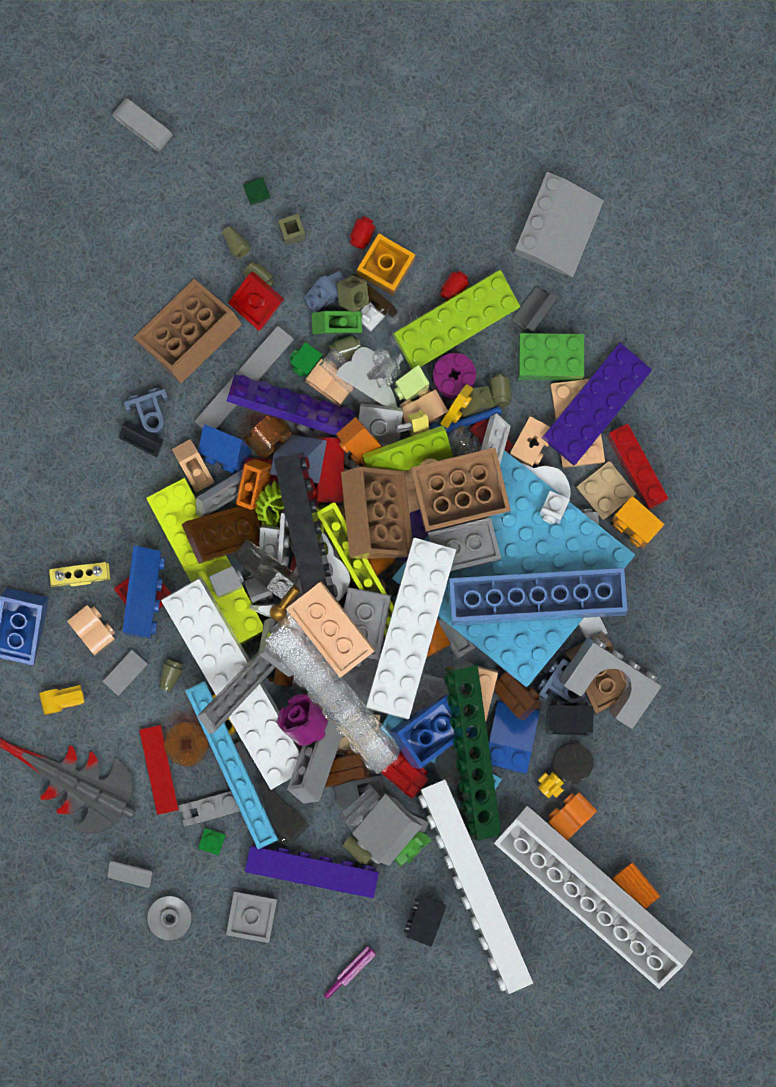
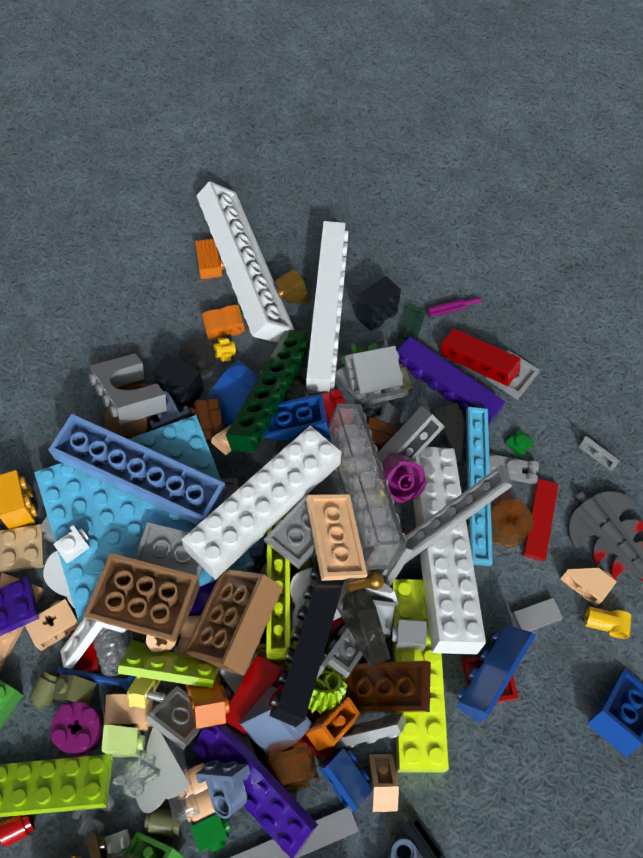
camera: 145 degrees left, 20 degrees down
(90, 726) = (590, 583): none -> light nougat slope
(91, 630) = (555, 670): light nougat brick -> none
(100, 573) = (524, 723): light yellow piece -> none
(157, 918) = (586, 398): light grey dish -> none
(170, 674) = (495, 592): olive cone -> none
(293, 913) = (481, 357): none -> red brick
(312, 393) = (225, 785): none -> sand blue pin
(381, 927) = (412, 323): none -> clear green tile
(454, 413) = (93, 692): yellow plate -> none
(522, 889) = (292, 288): none -> pearl gold slope

